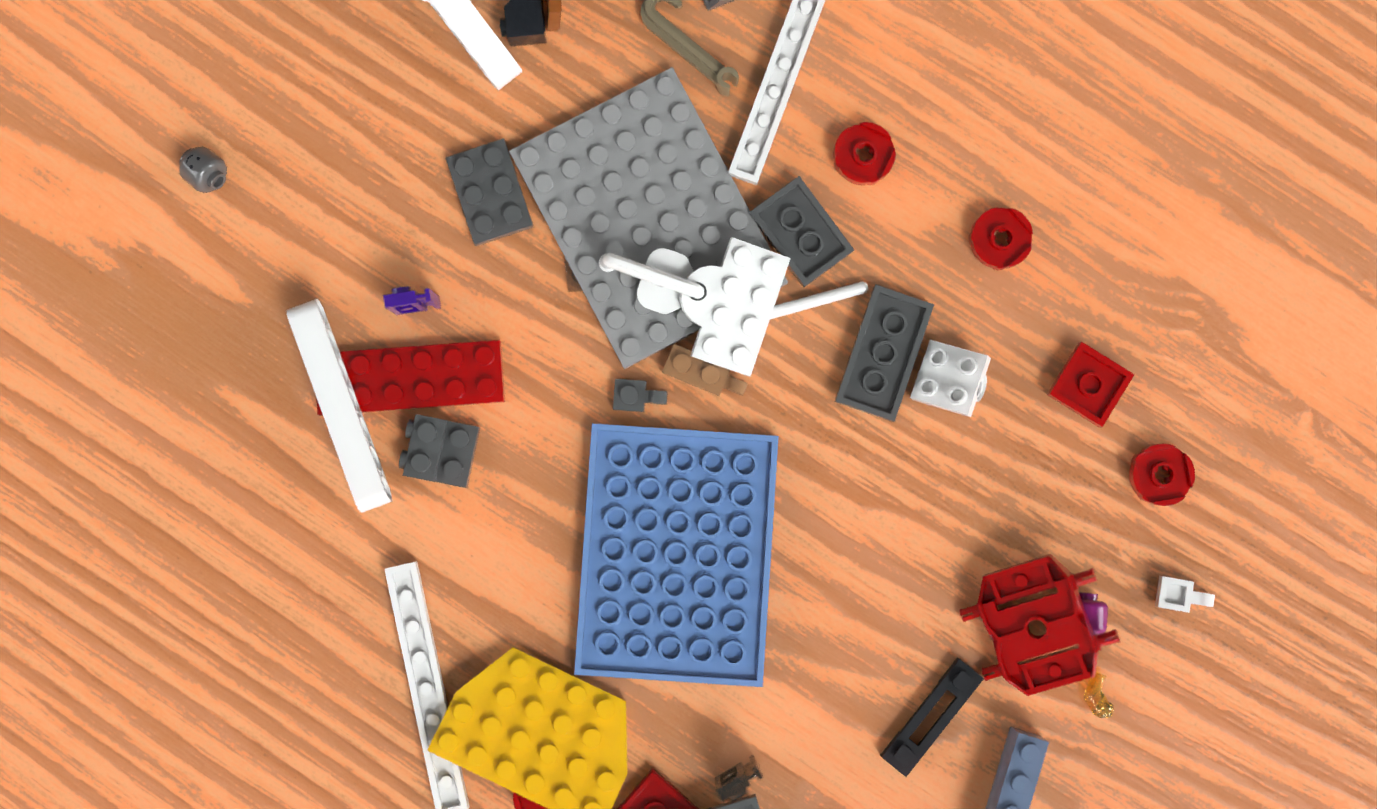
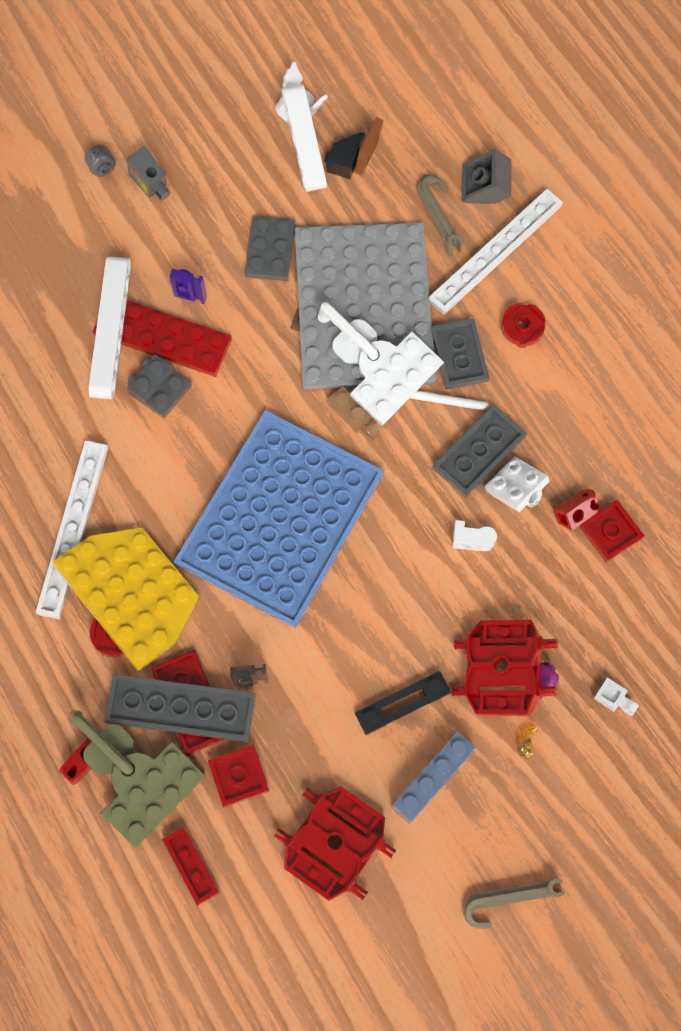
camera: 30 degrees right, 15 degrees down
(269, 158) = (147, 174): none -> dark grey torso
(632, 395) = (302, 407): dark grey plate -> none
(937, 469) = (472, 538): none -> white leg
(1001, 220) = (597, 403): red plate -> none
(1039, 377) = (577, 509): none -> red leg
(1176, 485) = (647, 605): red plate -> none

